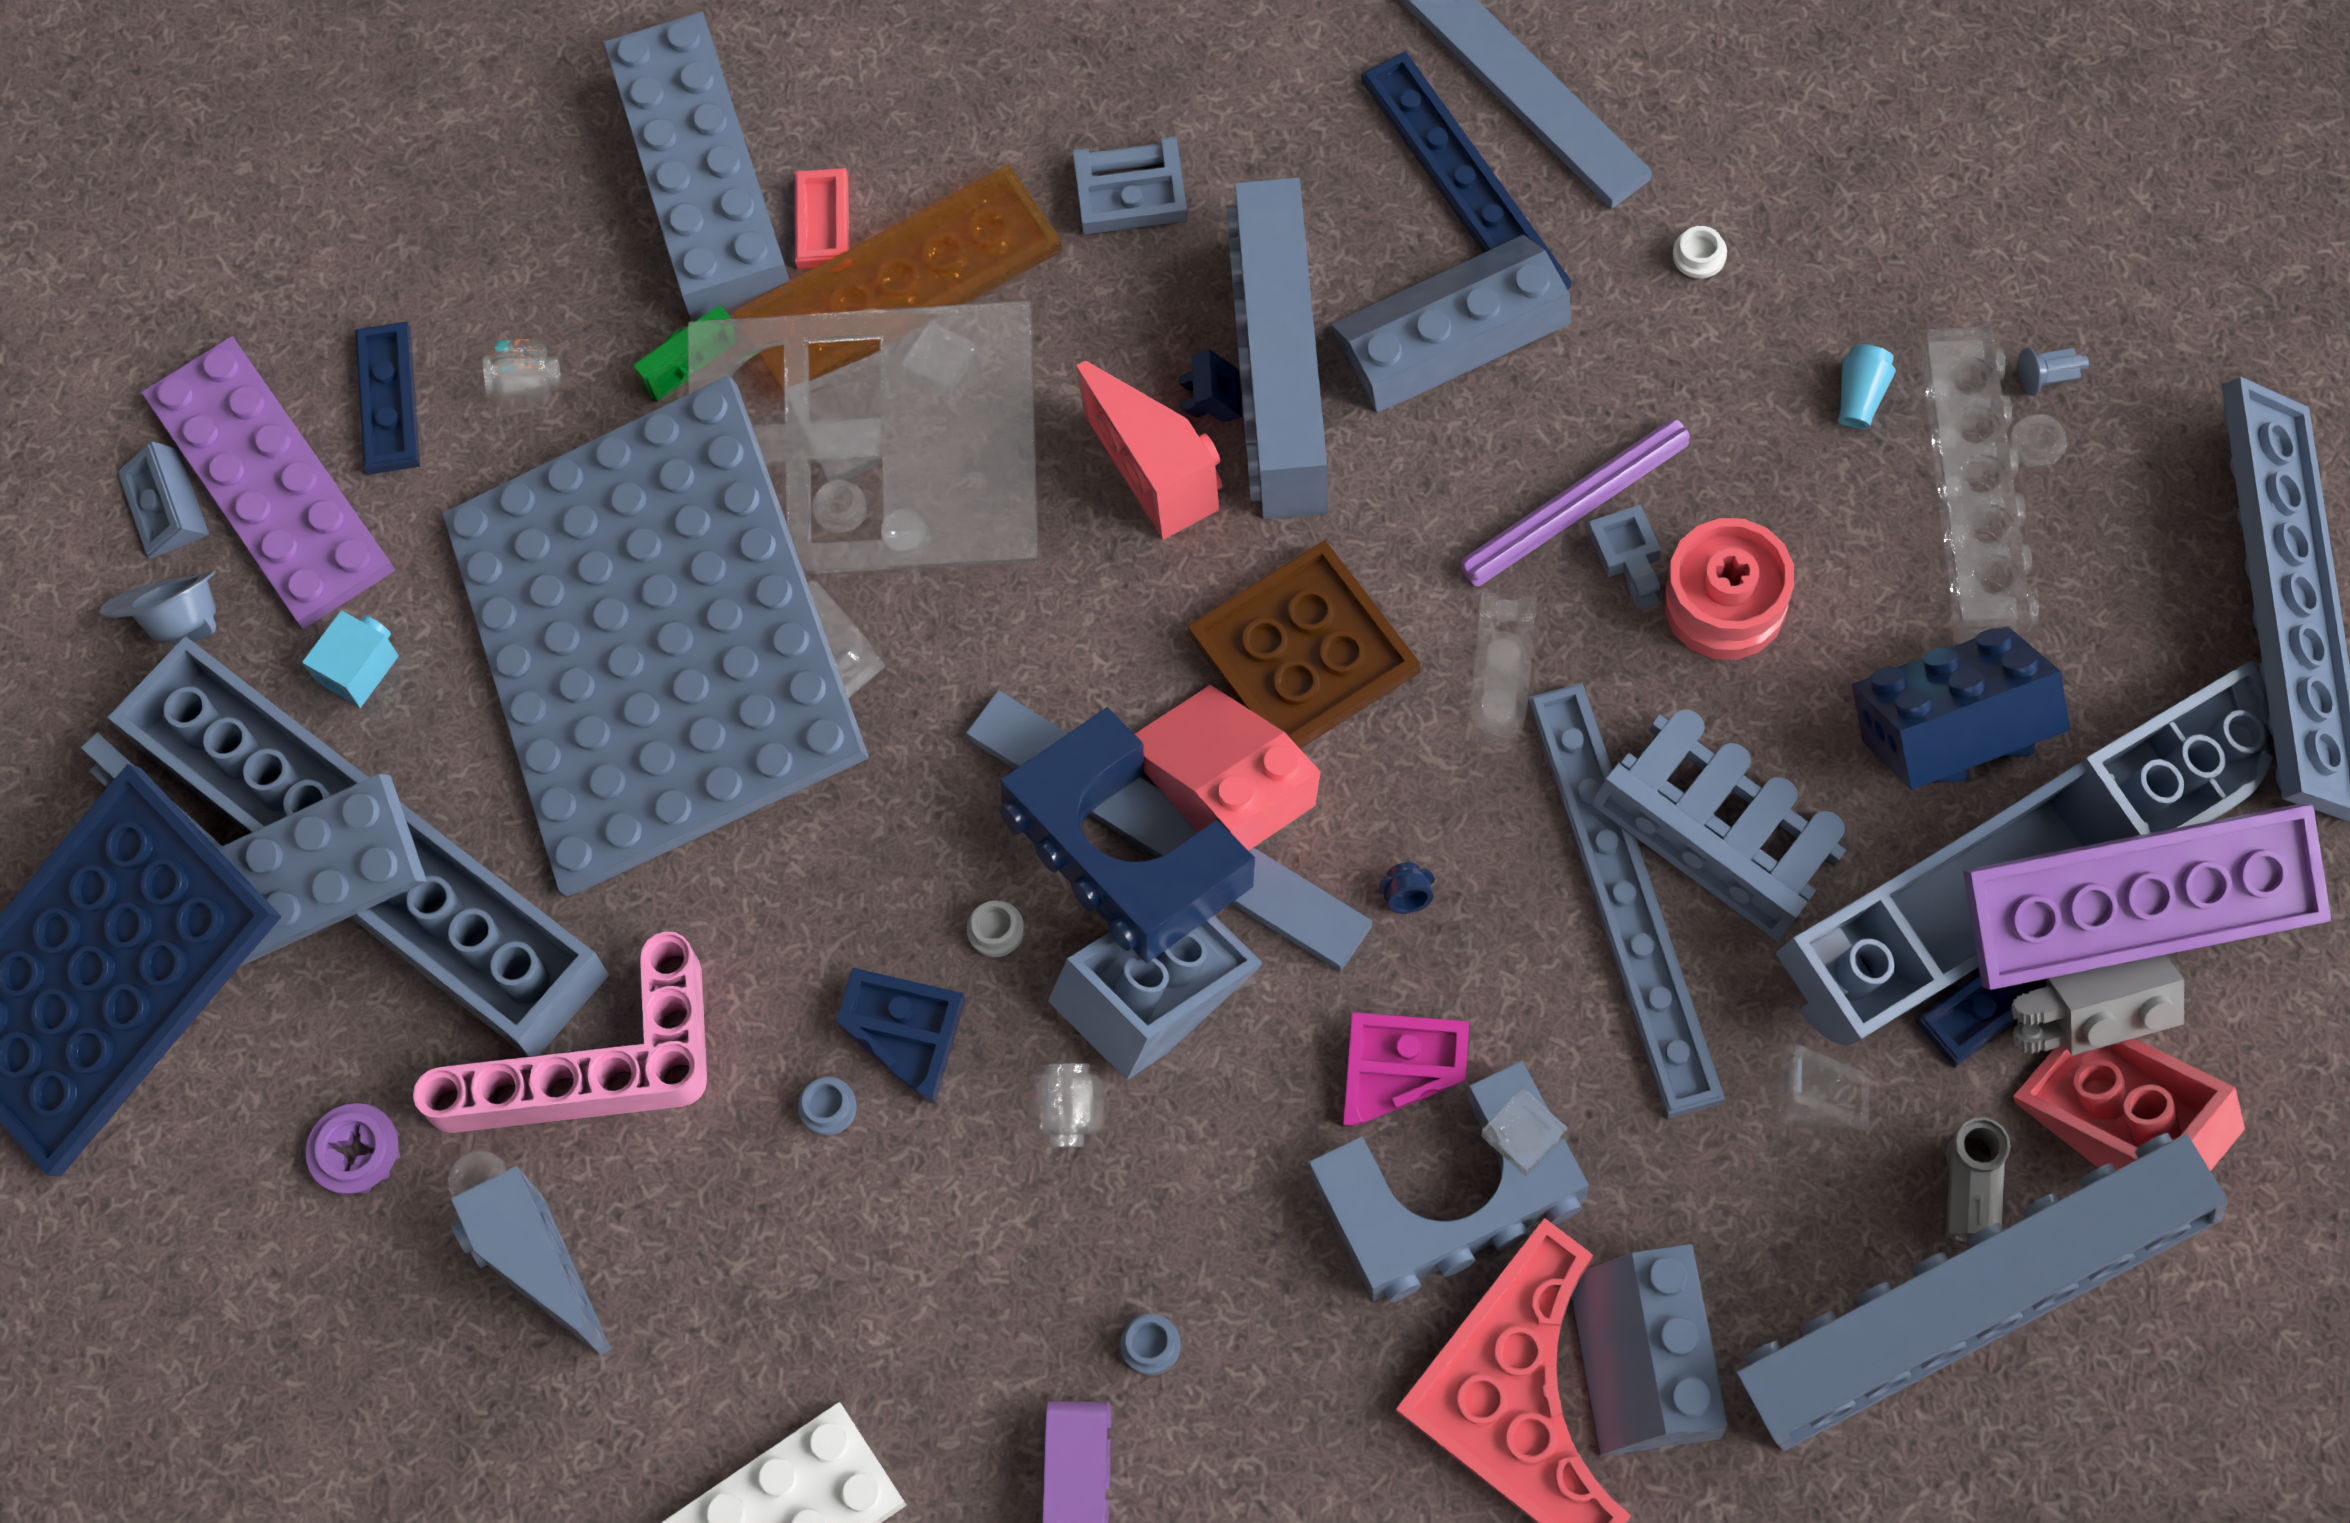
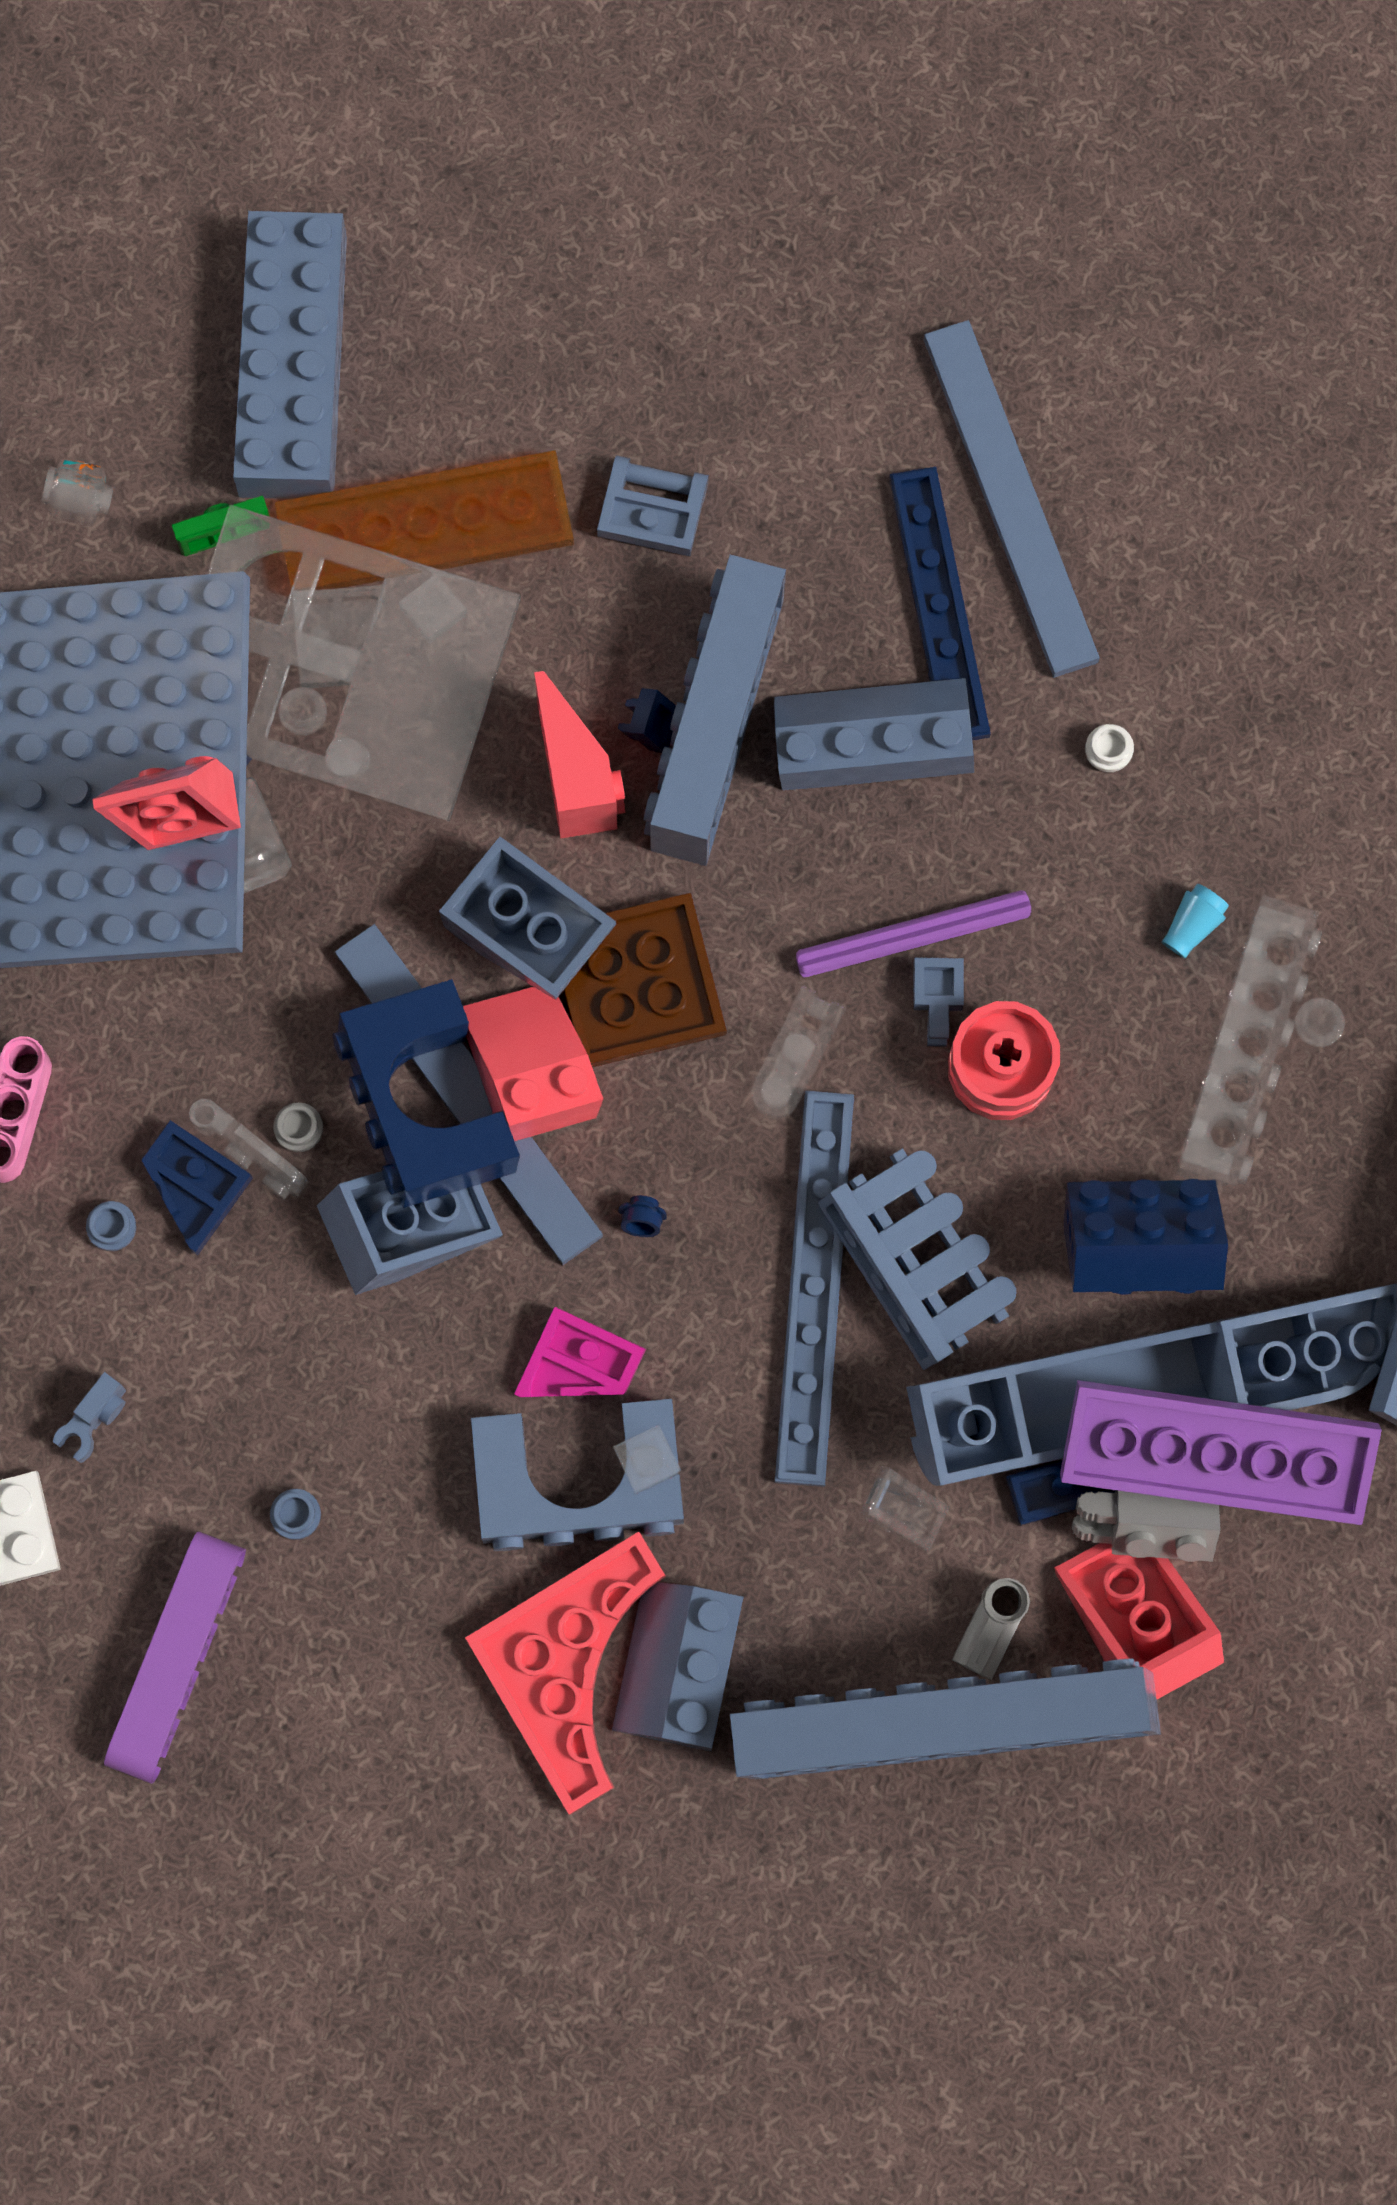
camera: 10 degrees right, 10 degrees up
(741, 620) = (174, 803): none -> coral slope
(821, 216) = (381, 437): coral tile -> none
(886, 1301) = (99, 1405): none -> sand blue plate
(950, 967) = (247, 1148): none -> clear plate
(1066, 1104) = (300, 1296): clear head -> none
(1160, 622) = (525, 919): none -> sand blue slope
(2048, 368) = (1357, 962): sand blue piece -> none

